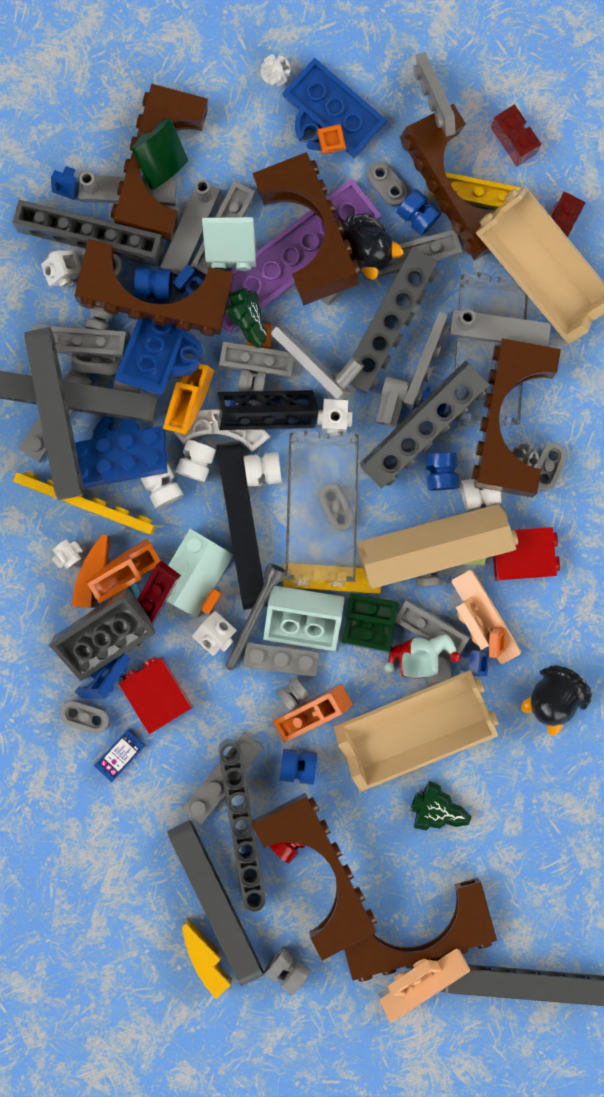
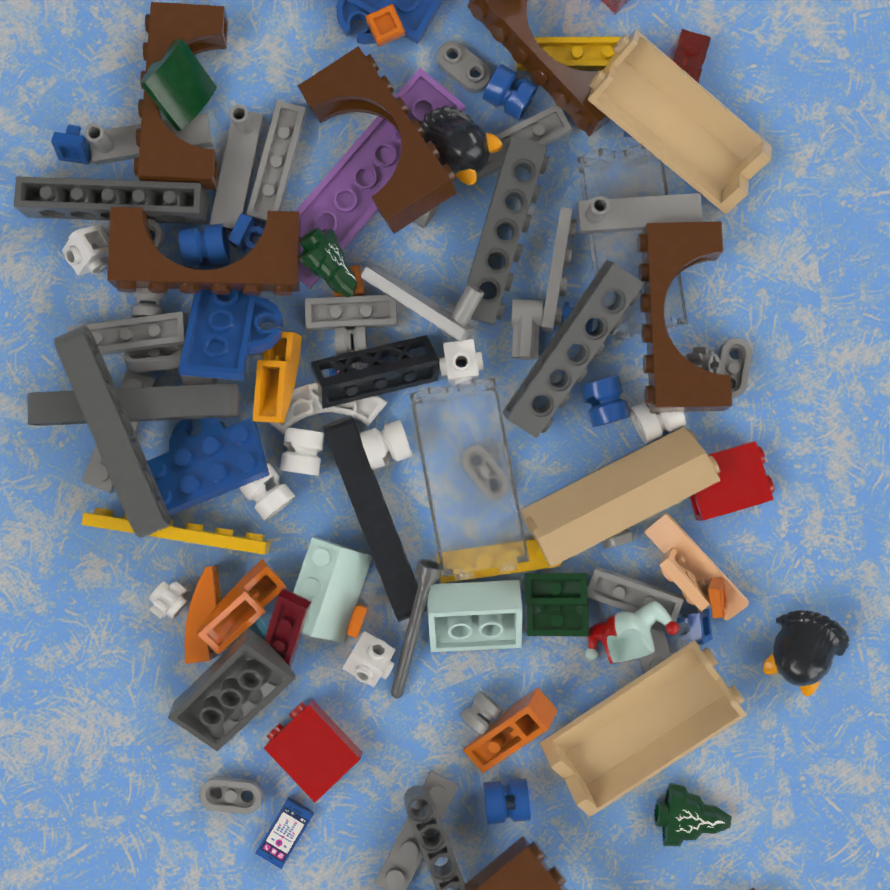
camera: 15 degrees left, 0 degrees up
(105, 679) = (246, 744): blue wing -> none
(229, 243) = (286, 174): light aqua slope -> none
(281, 659) = (457, 672): light grey plate -> none

